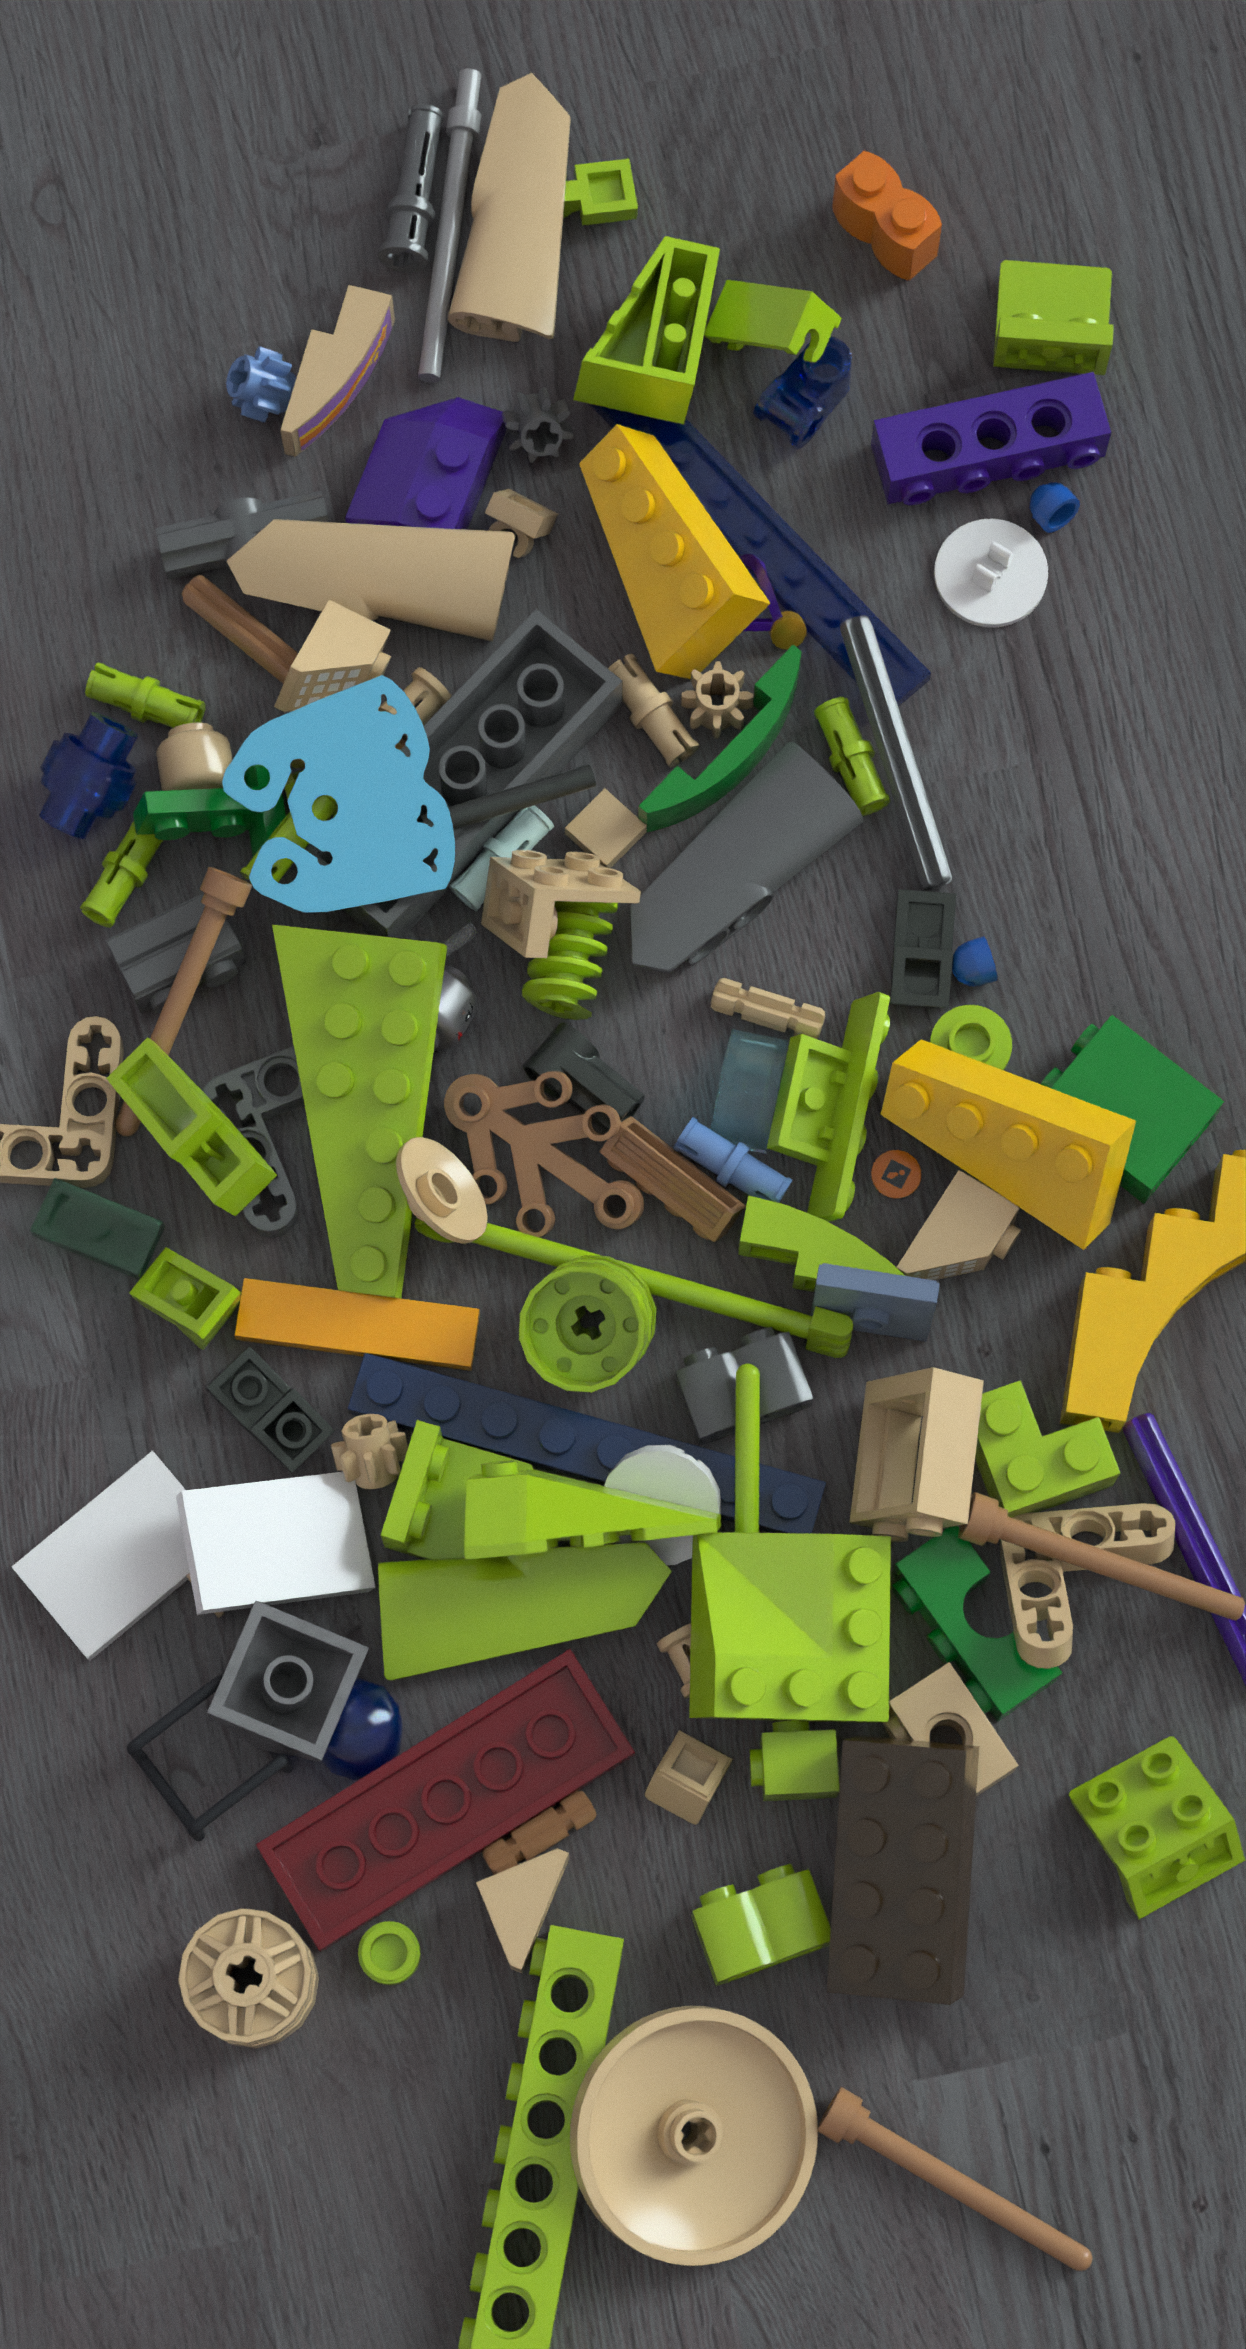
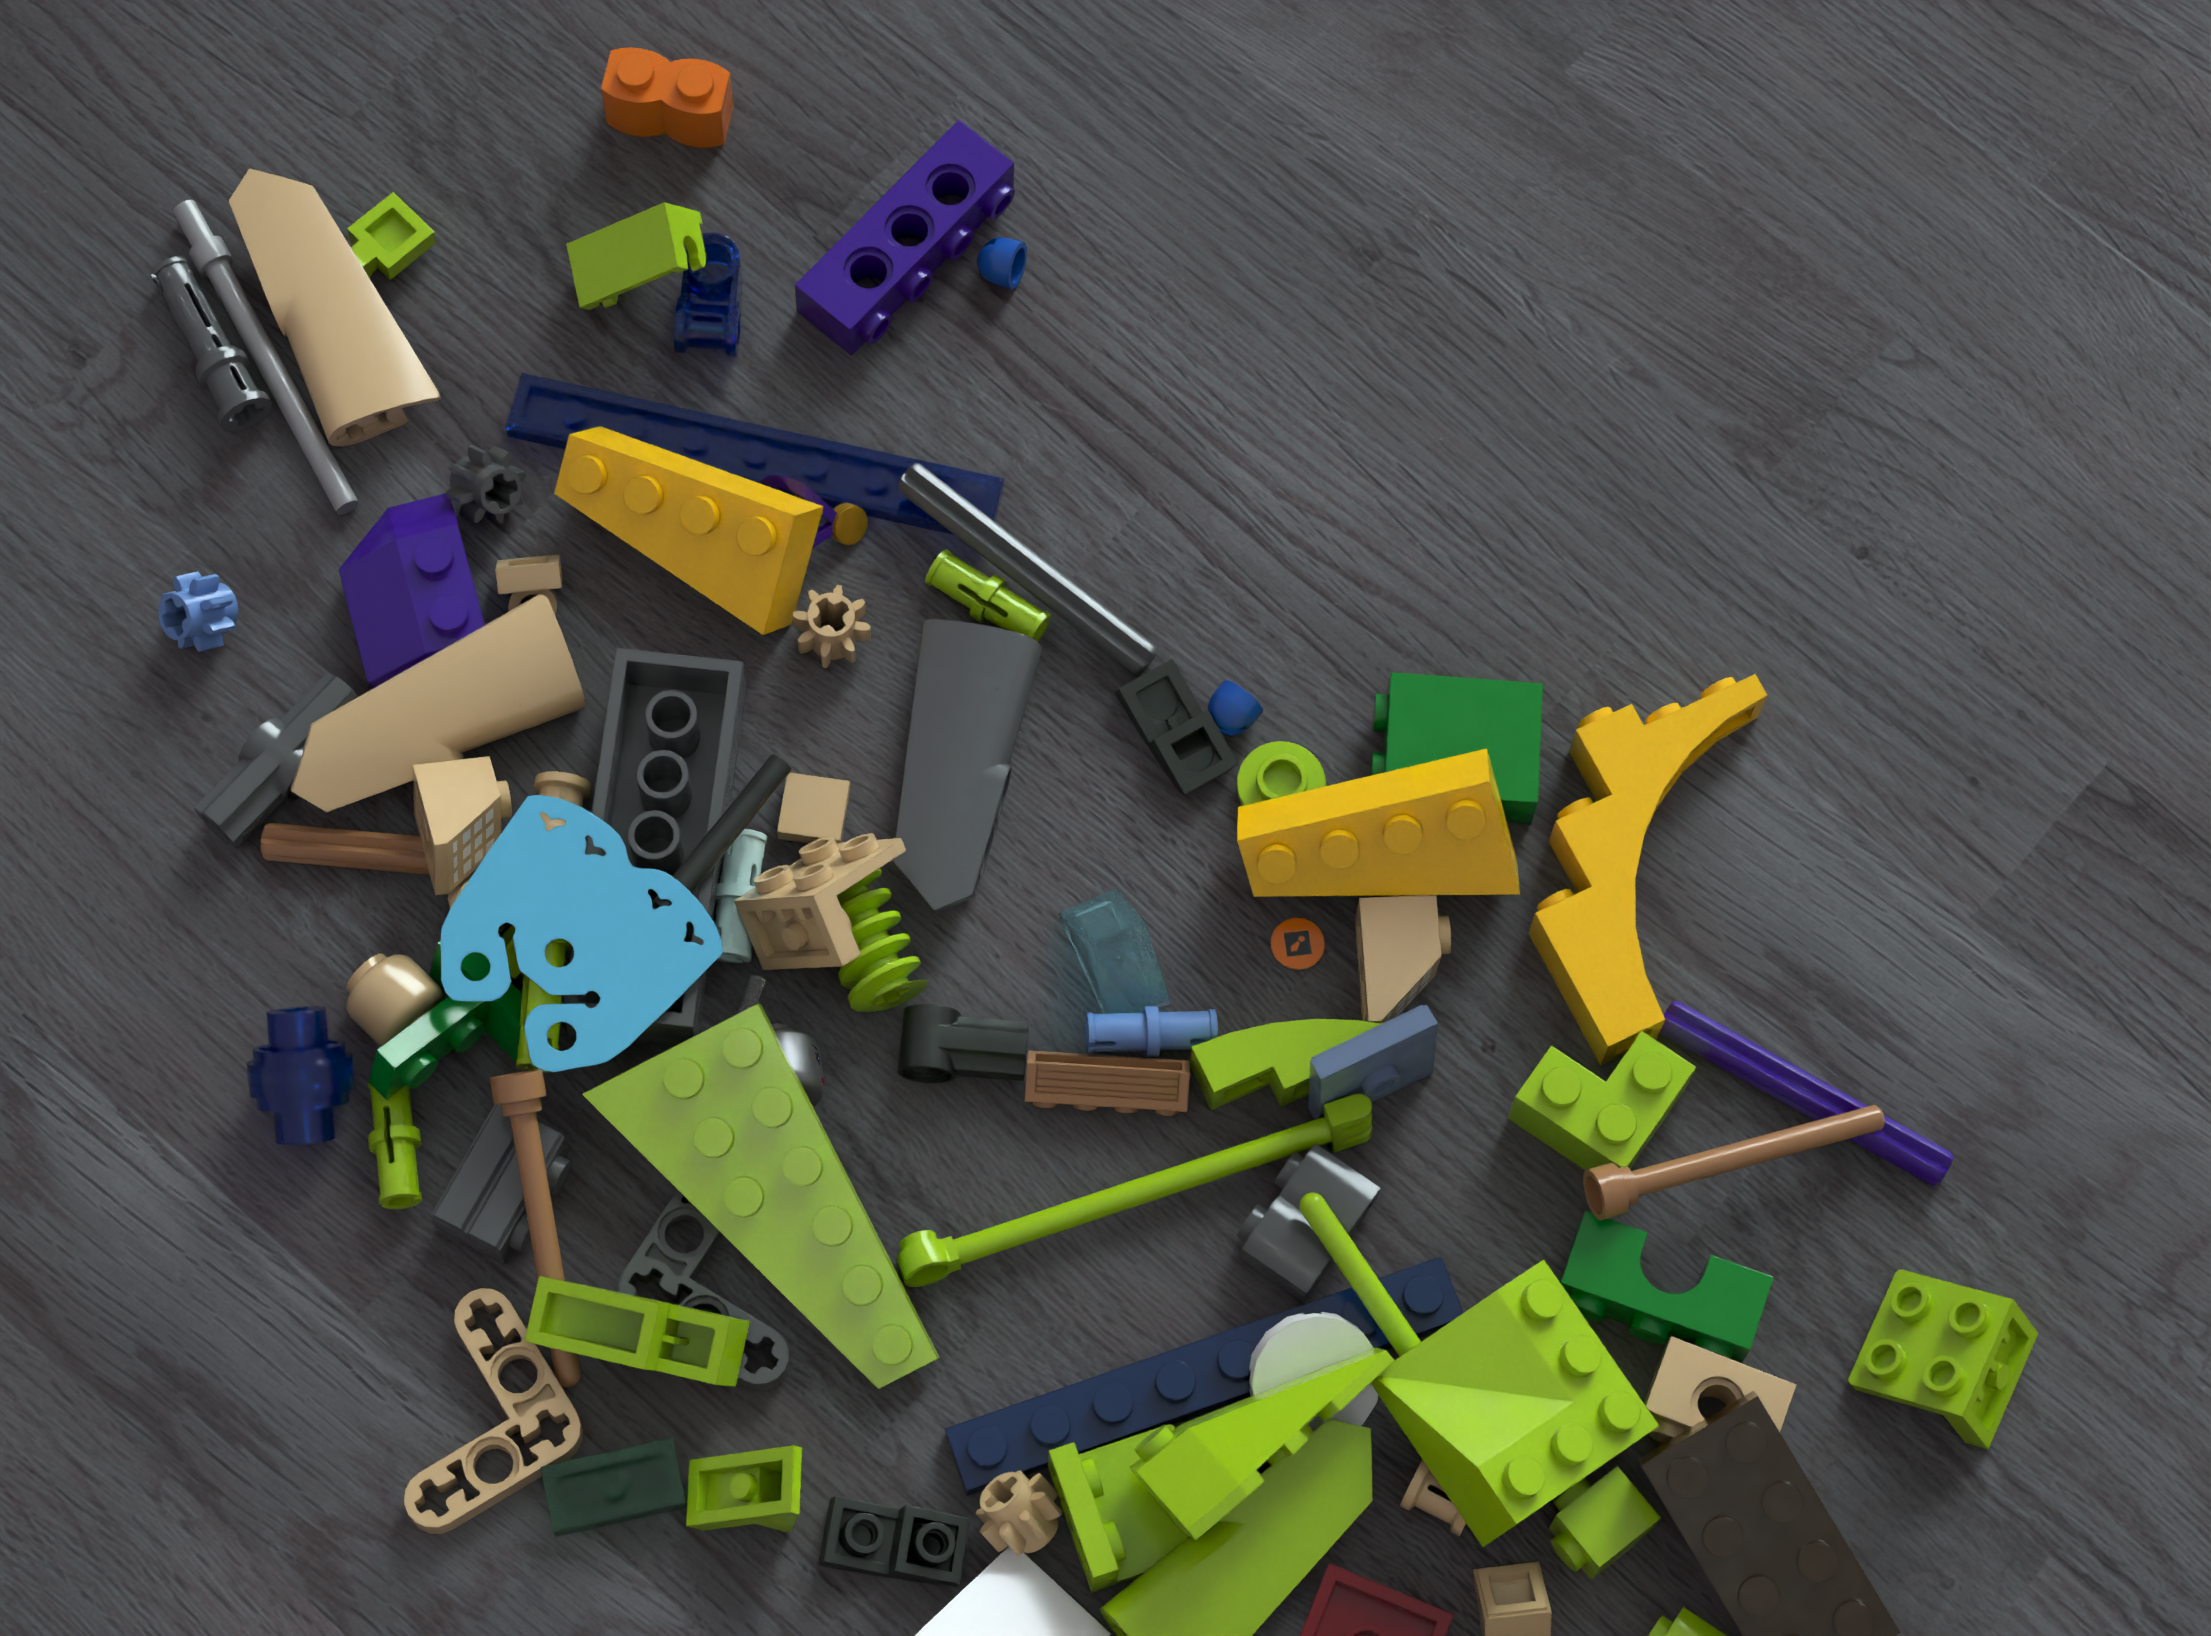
camera: 40 degrees left, 5 degrees down
(142, 697) = (295, 972): lime pin -> none
(337, 367) = (257, 549): tan slope -> none
(357, 1324) = (918, 1408): light orange tile -> none
(441, 1190) = (915, 1231): tan dish -> none
(534, 1147) = (963, 1136): medium nougat plant -> none
(579, 1356) = (1147, 1294): lime wheel -> none
(653, 712) = (782, 676): tan pin -> none
(656, 337) = (548, 335): lime wedge -> none
(683, 797) = (863, 728): green slope -> none
(767, 1008) = (1079, 873): tan axle -> none
(826, 1103) = (1197, 918): lime bracket -> none
(890, 1448) = (1475, 1189): tan window -> none
(991, 573) = (989, 357): white piece -> none
(1047, 1570) = (1707, 1245): tan beam -> none
(1053, 317) = (882, 96): lime bracket -> none

